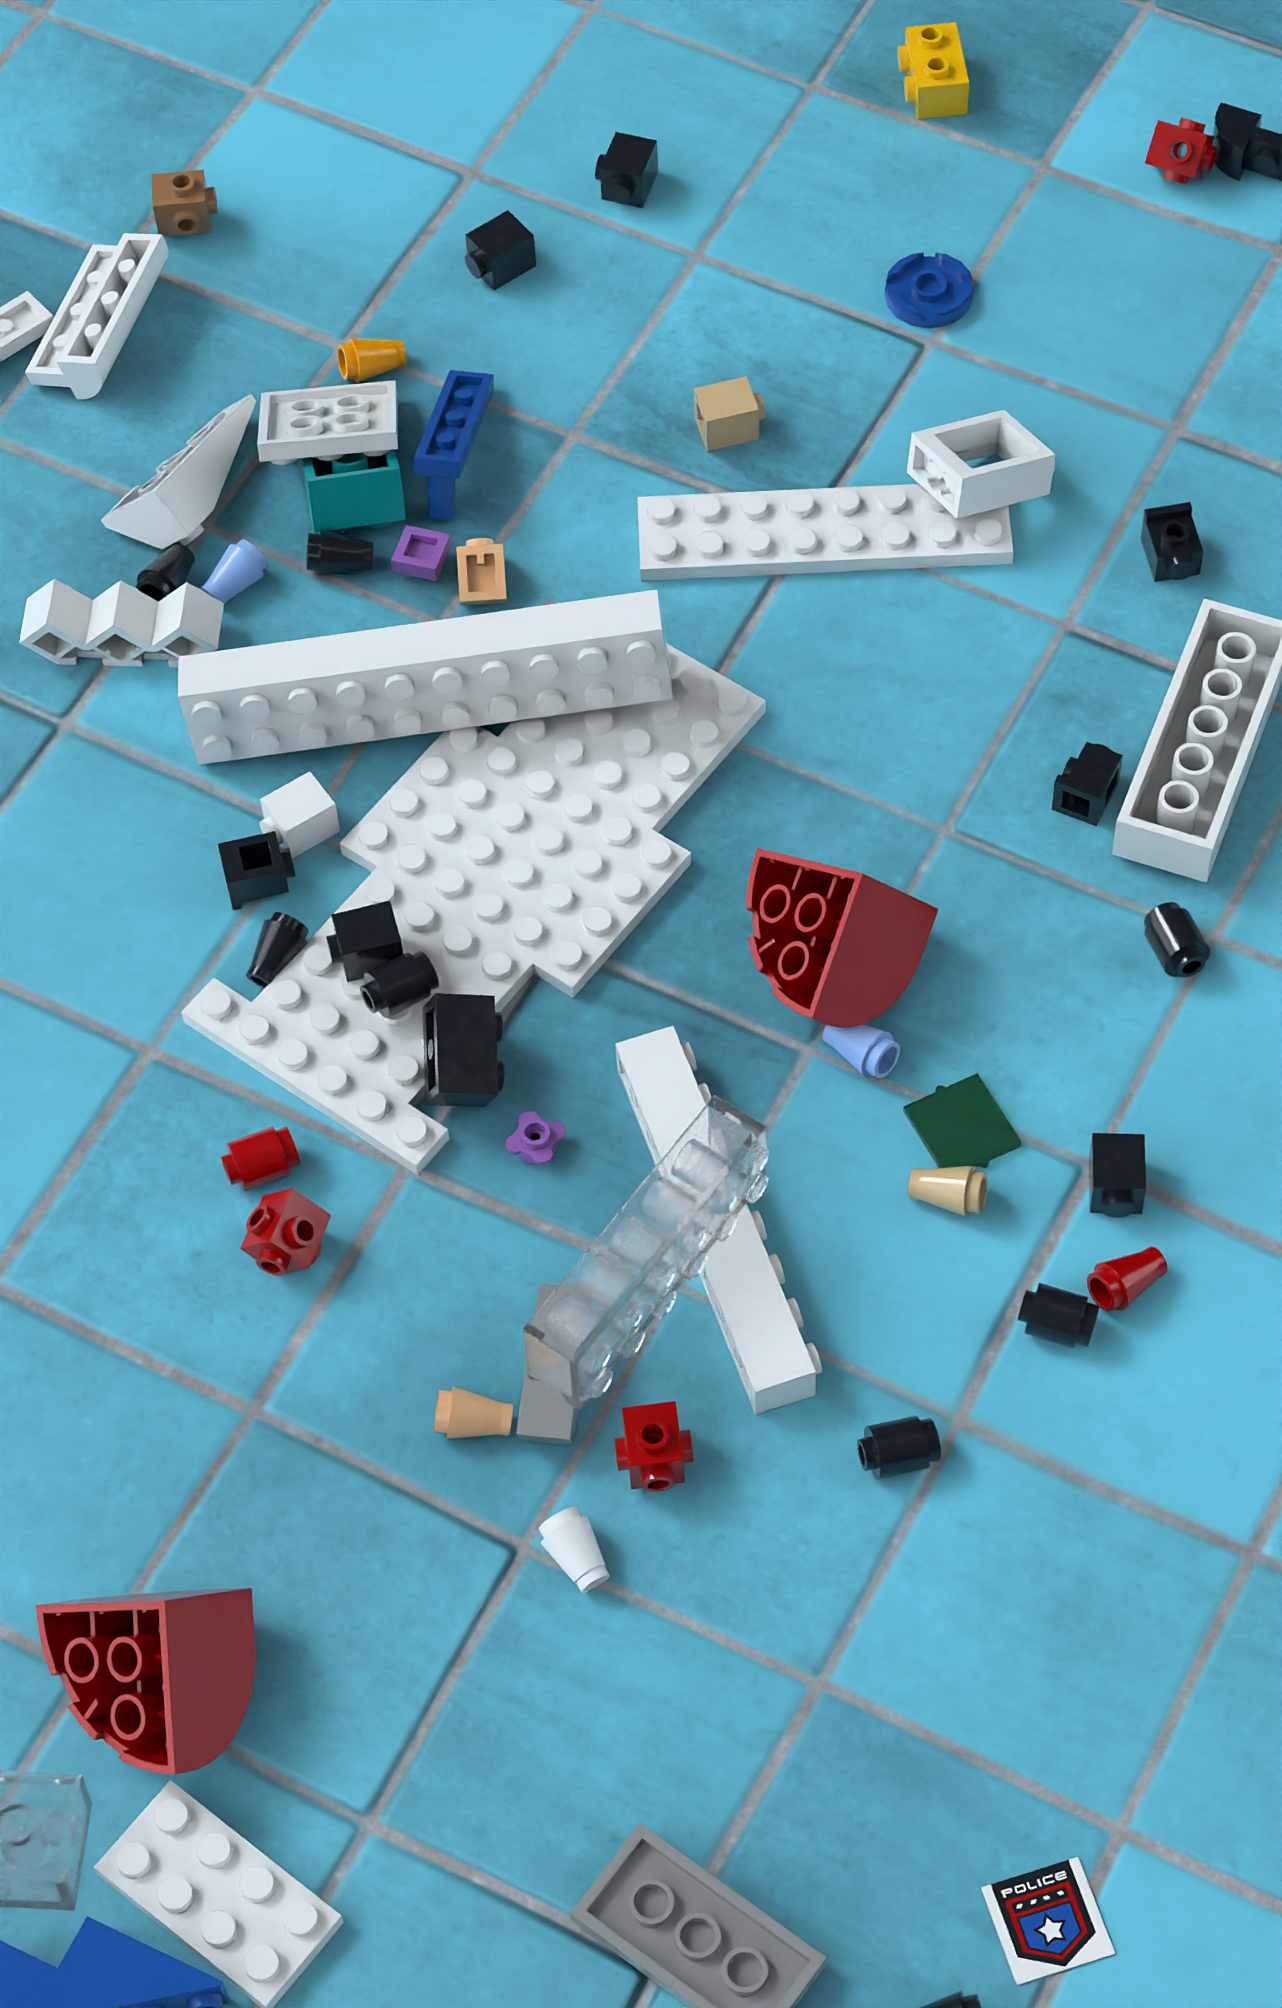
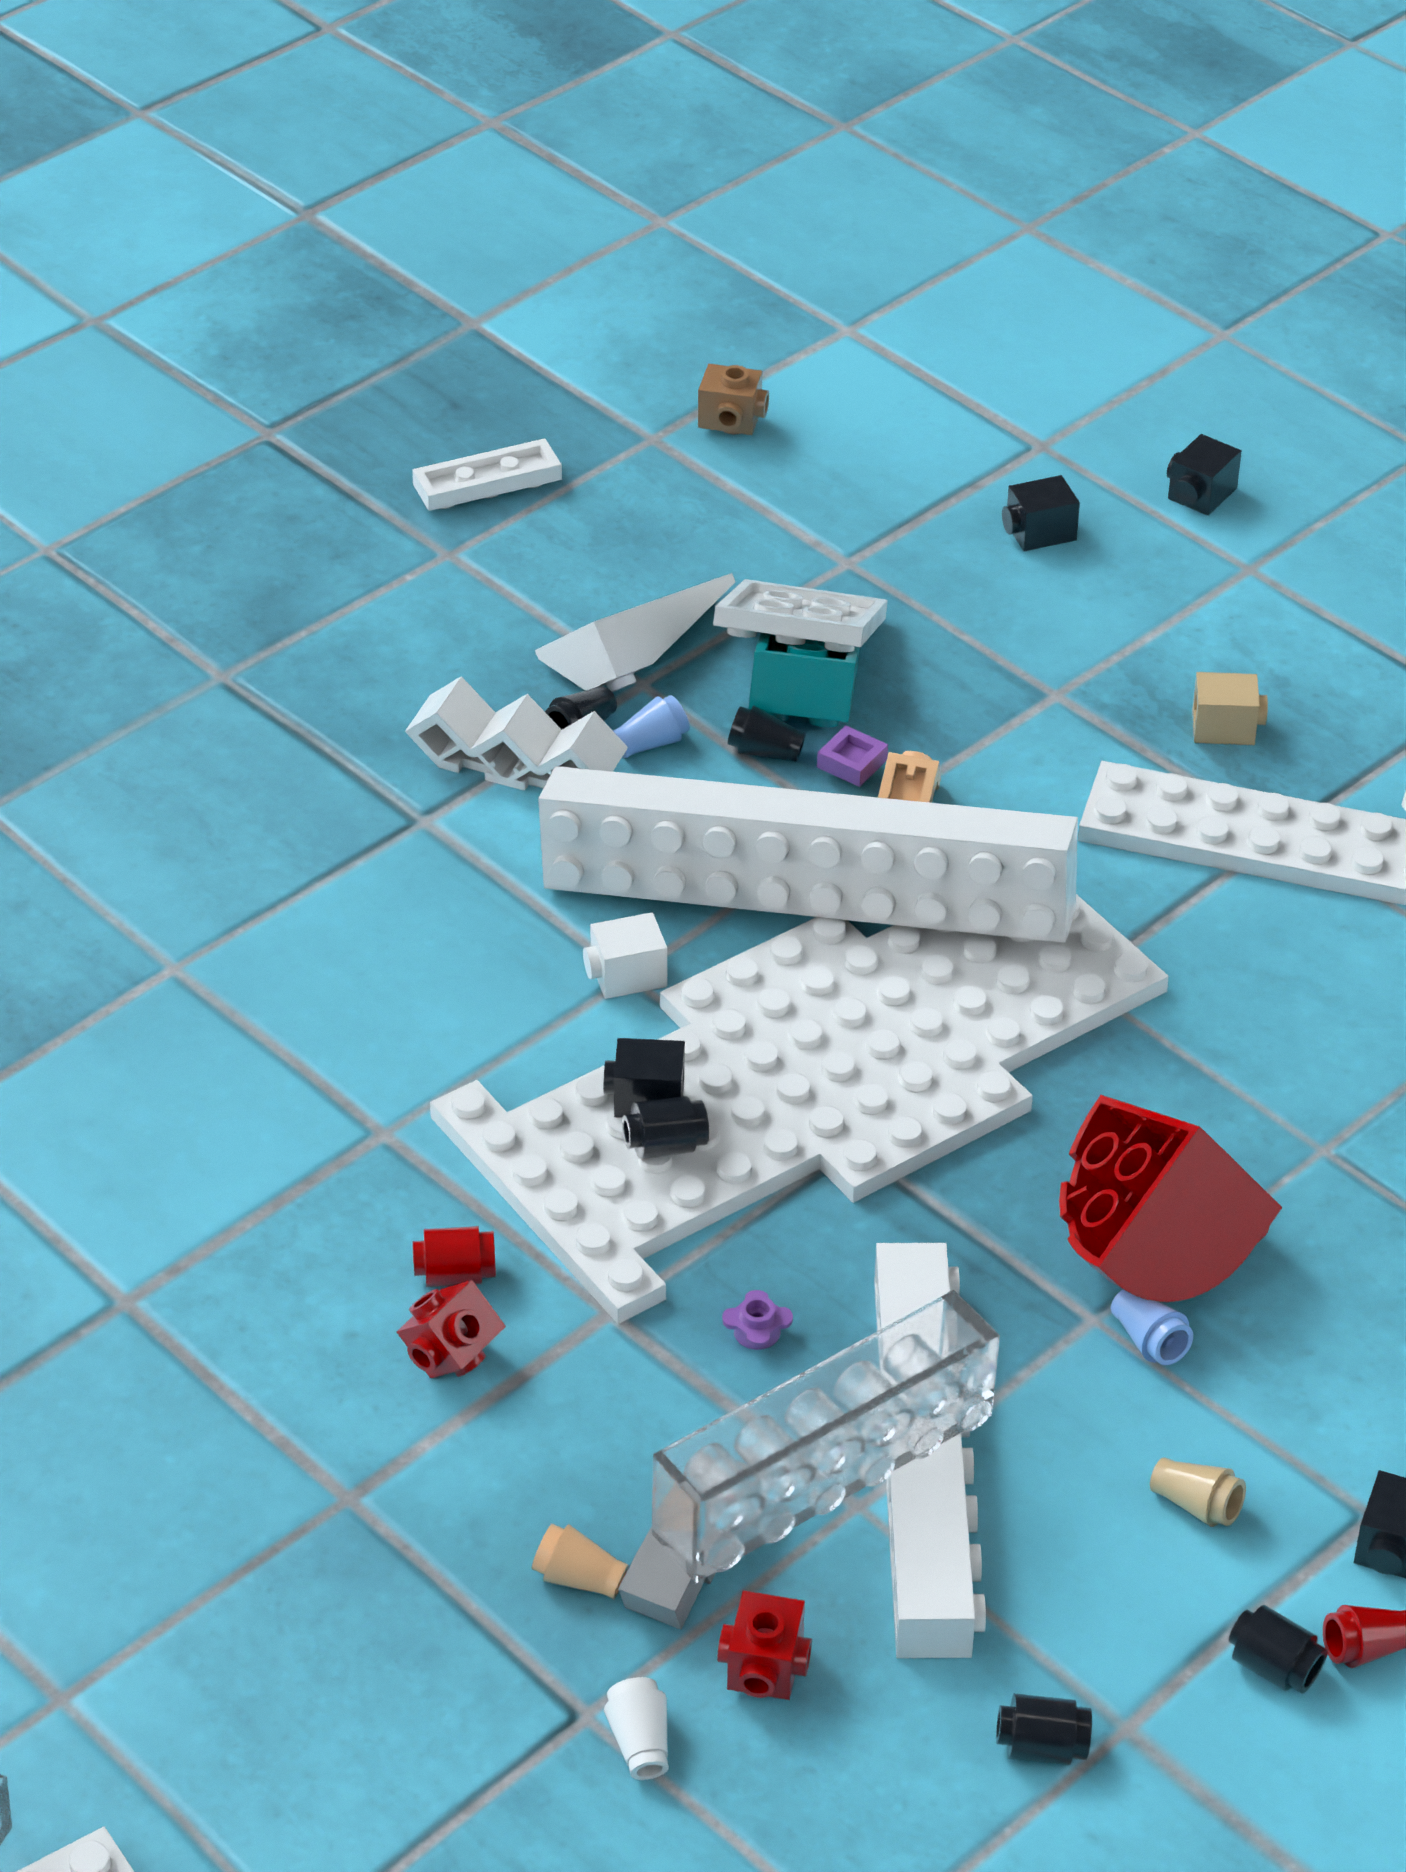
camera: 15 degrees right, 15 degrees down
(98, 314) = (609, 474): white brick -> none
(155, 1671) = (134, 1700): red brick -> none
(255, 868) = (561, 990): black brick -> none
(277, 946) = (556, 1065): black cone -> none
(367, 358) = (868, 574): light orange cone -> none
(451, 437) = (918, 657): blue piece -> none
(462, 1050) = (708, 1206): black brick -> none
(962, 1125) = (1239, 1434): clear green piece -> none

